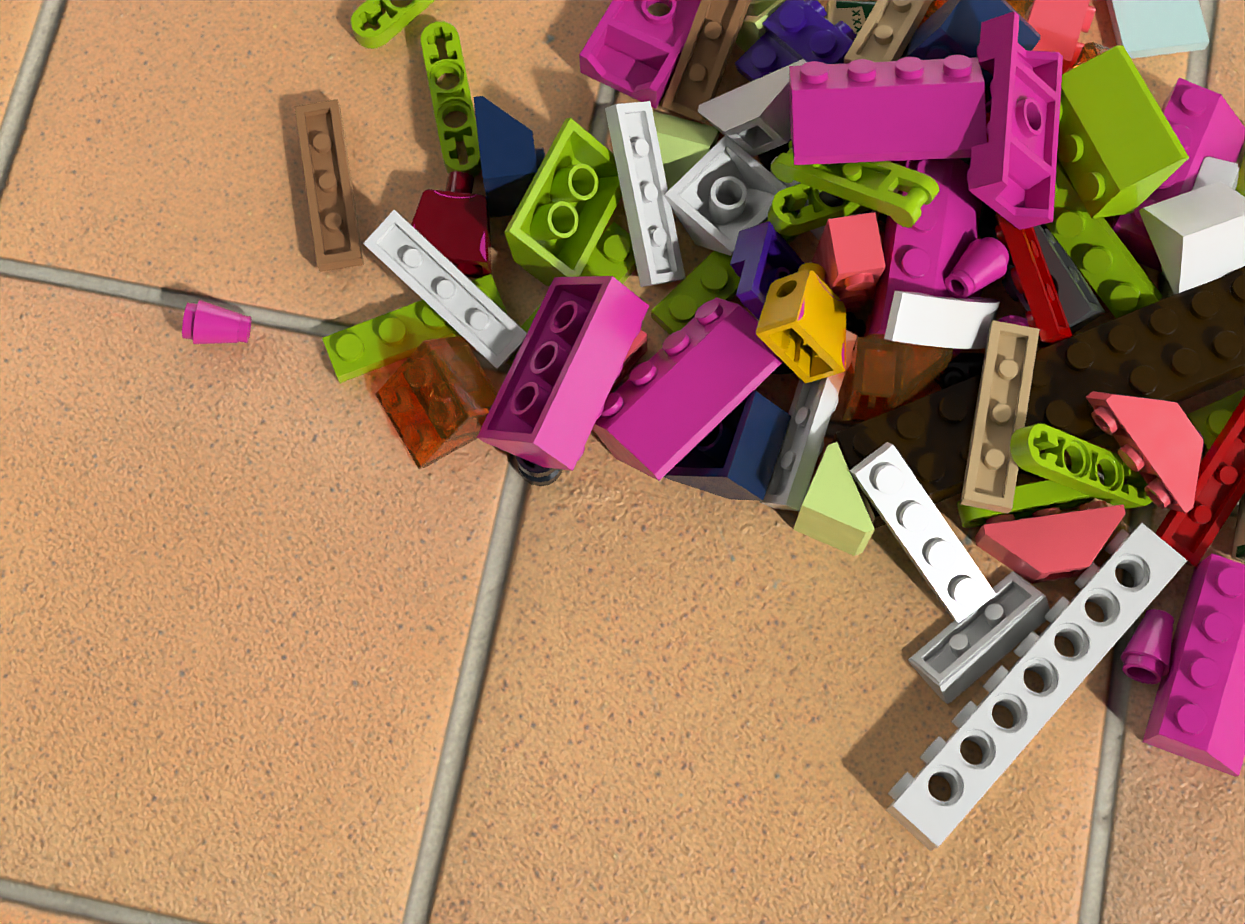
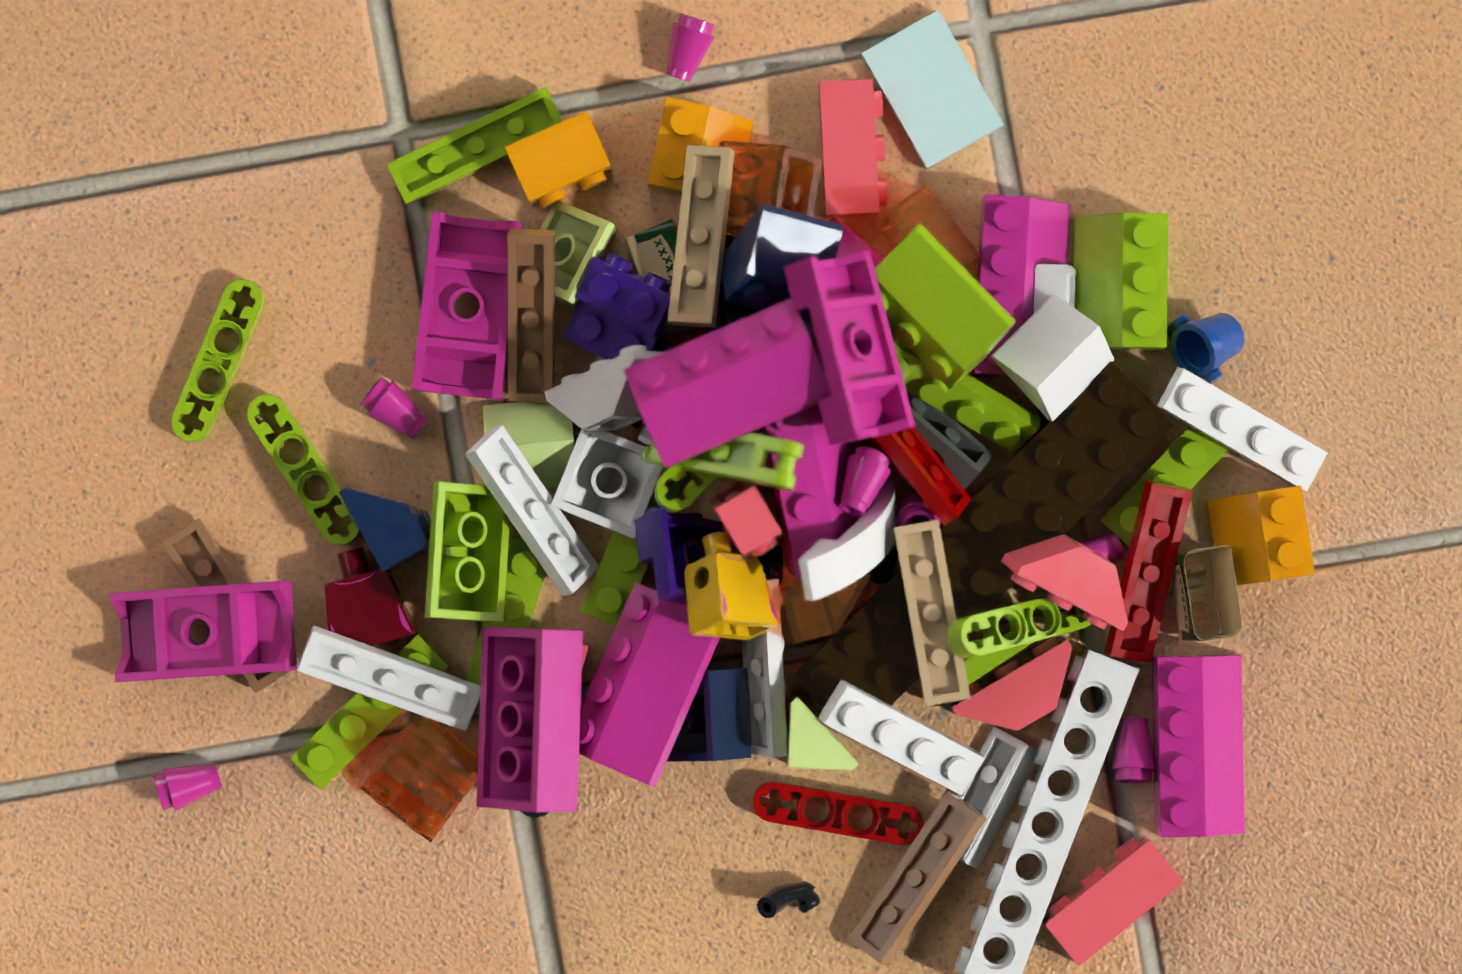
camera: 20 degrees left, 15 degrees up
(335, 199) = (246, 621): none -> dark pink piece
(554, 74) = (393, 408): none -> dark pink cone
(746, 652) = (784, 895): none -> black arm
(830, 587) = (839, 806): none -> red beam
(885, 683) = (917, 878): none -> medium nougat plate
(1078, 784) = (1110, 899): none -> coral brick

